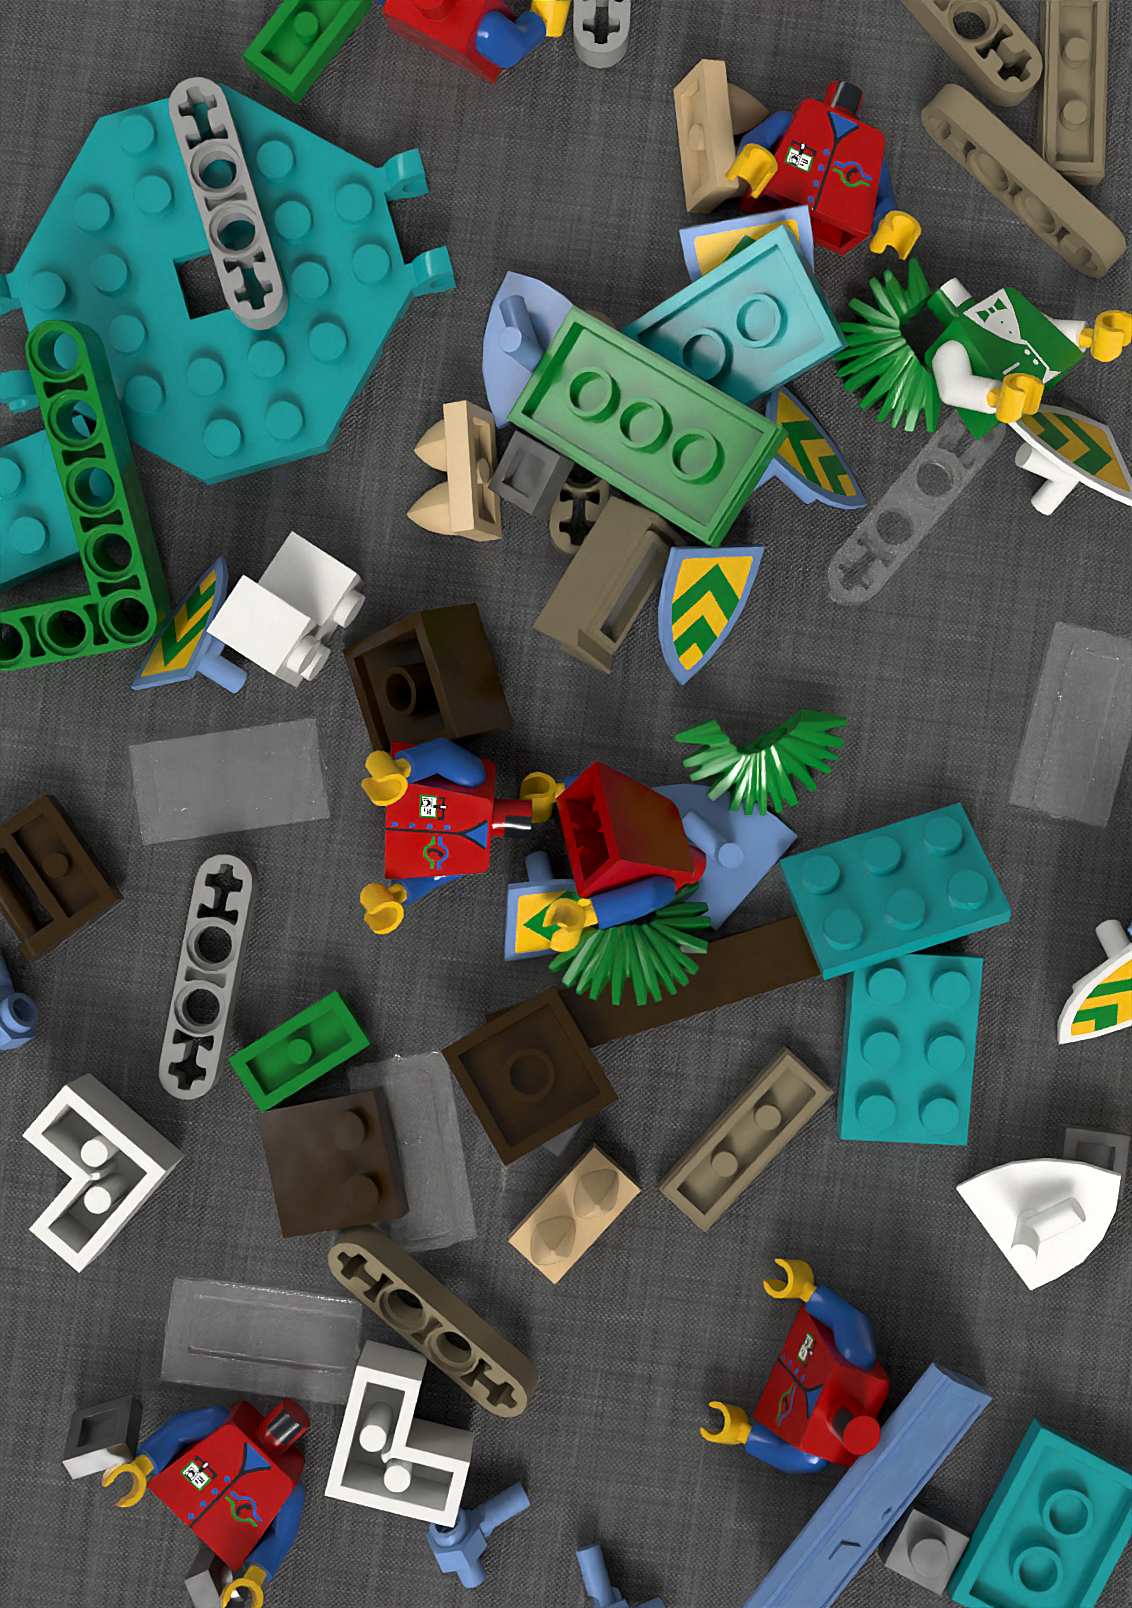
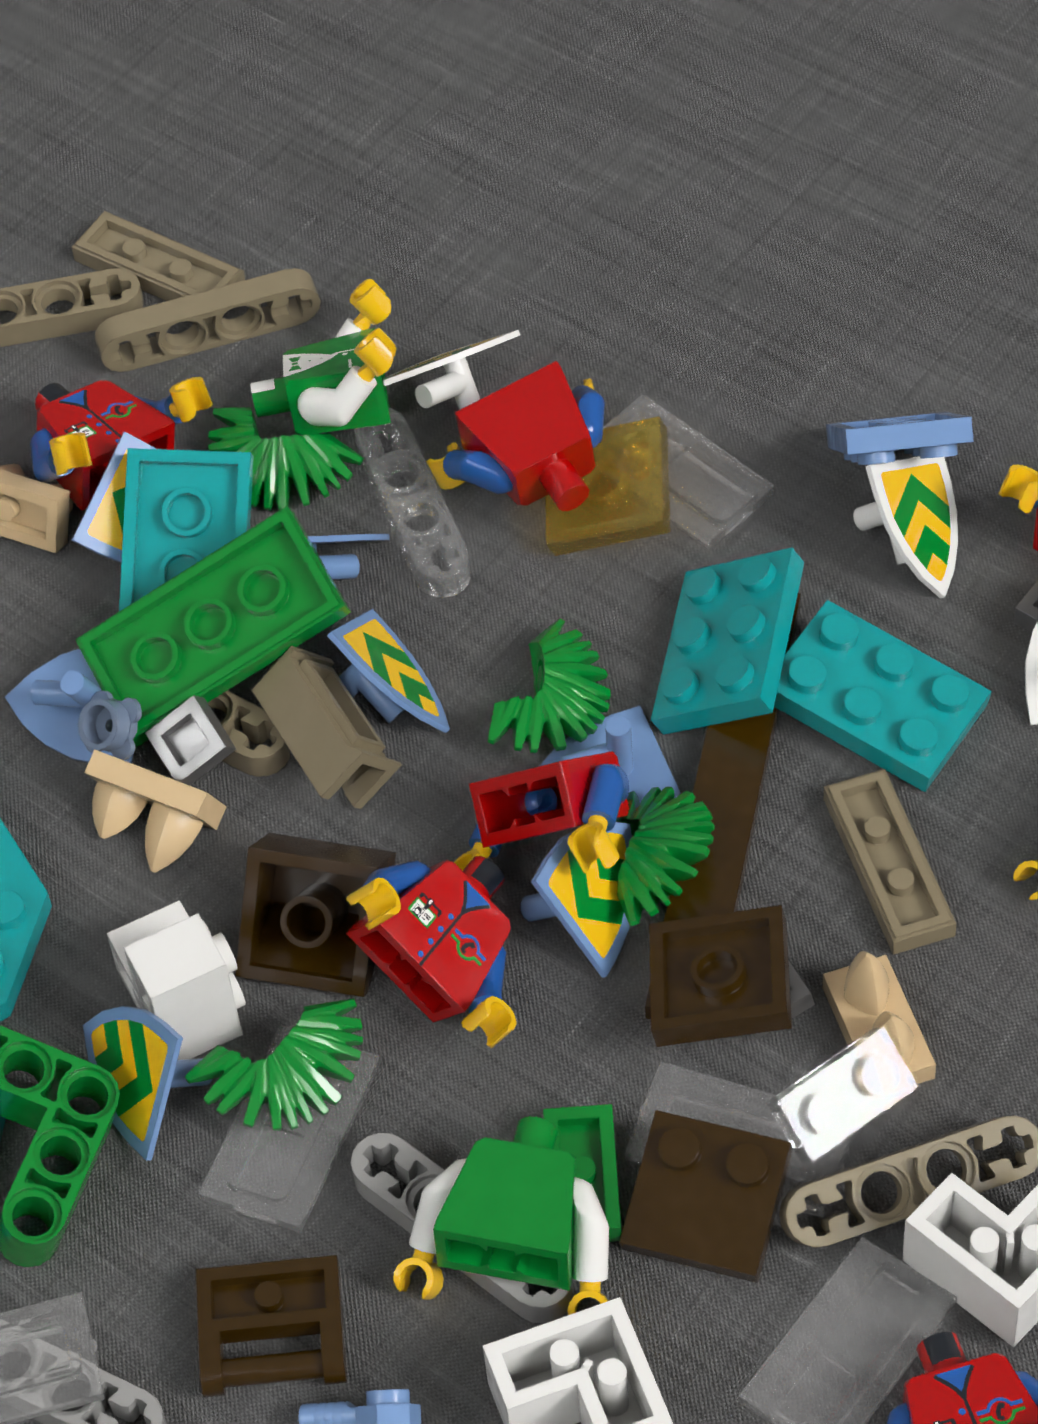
camera: 55 degrees left, 35 degrees down
(207, 1035) = (512, 1217): none -> green torso
(254, 765) = (292, 1073): none -> green hair
(469, 1237) = (842, 1094): none -> clear plate
(500, 395) = (110, 724): none -> sand blue plate
(1015, 682) = (625, 494): none -> clear yellow plate
(1017, 592) = (528, 440): none -> red torso

